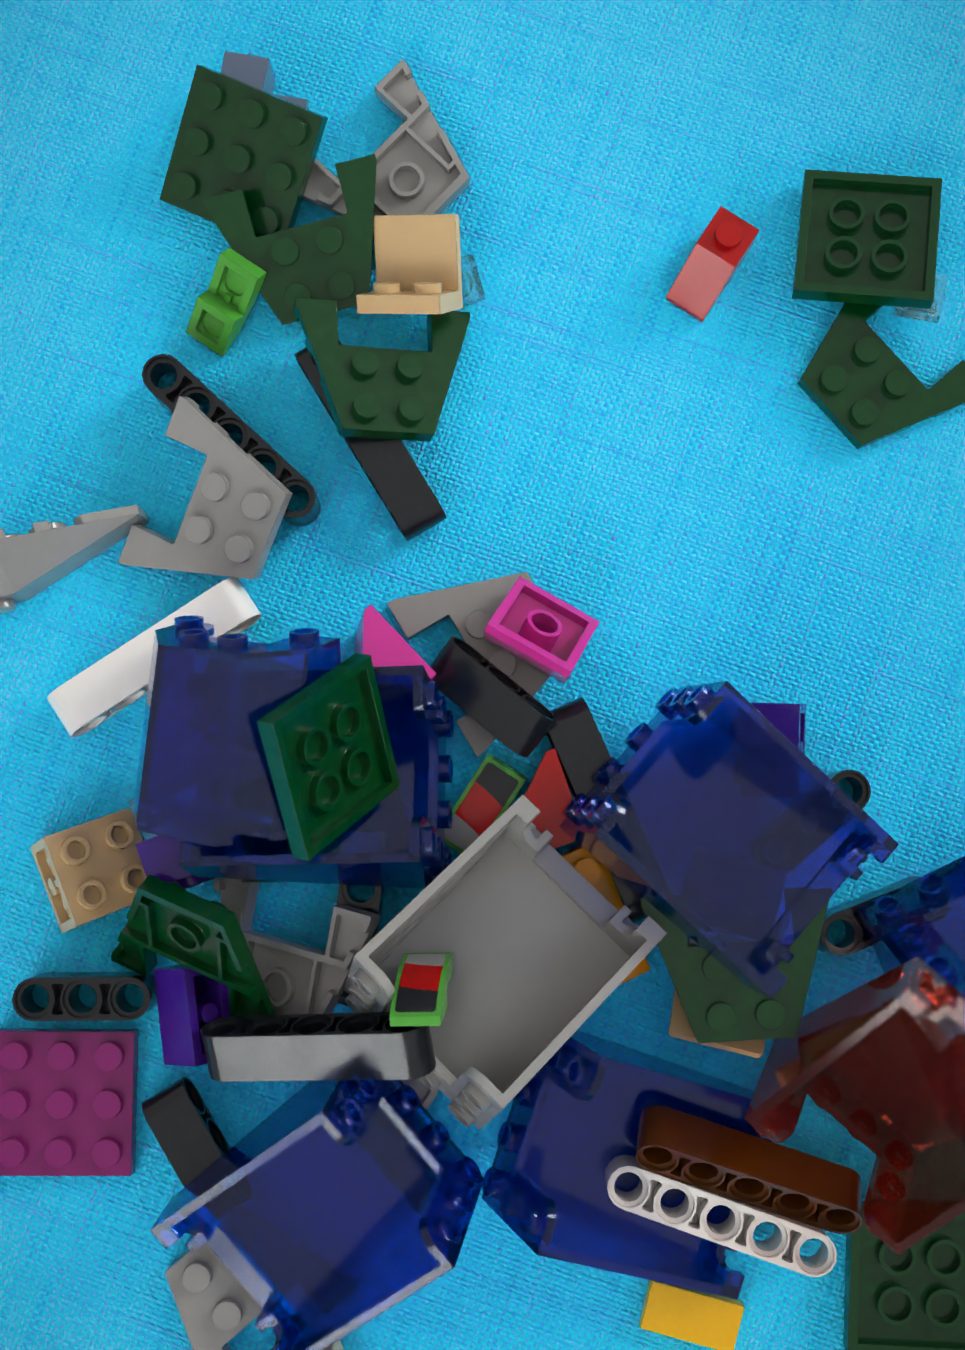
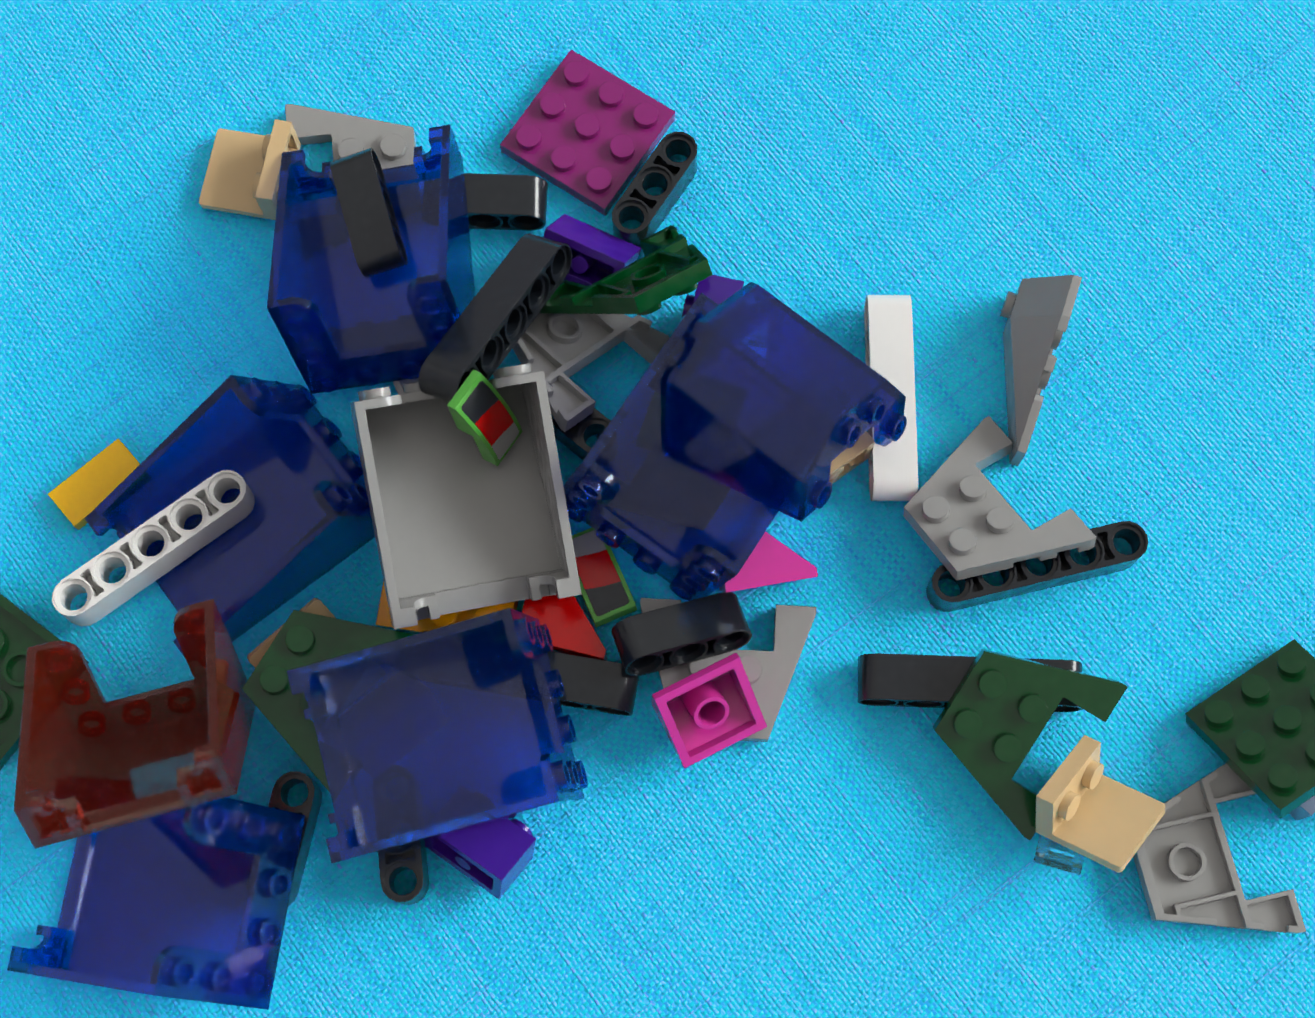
camera: 125 degrees right, 10 degrees down
(91, 868) = (751, 246): tan bracket -> none
(227, 302) = (1162, 636): bright green slope -> none
(283, 1249) = (368, 213): none -> black beam
(311, 260) = (1156, 728): dark green wing -> none
(329, 755) = (711, 453): dark green plate -> none
(749, 1169) = (186, 577): reddish brown beam -> none

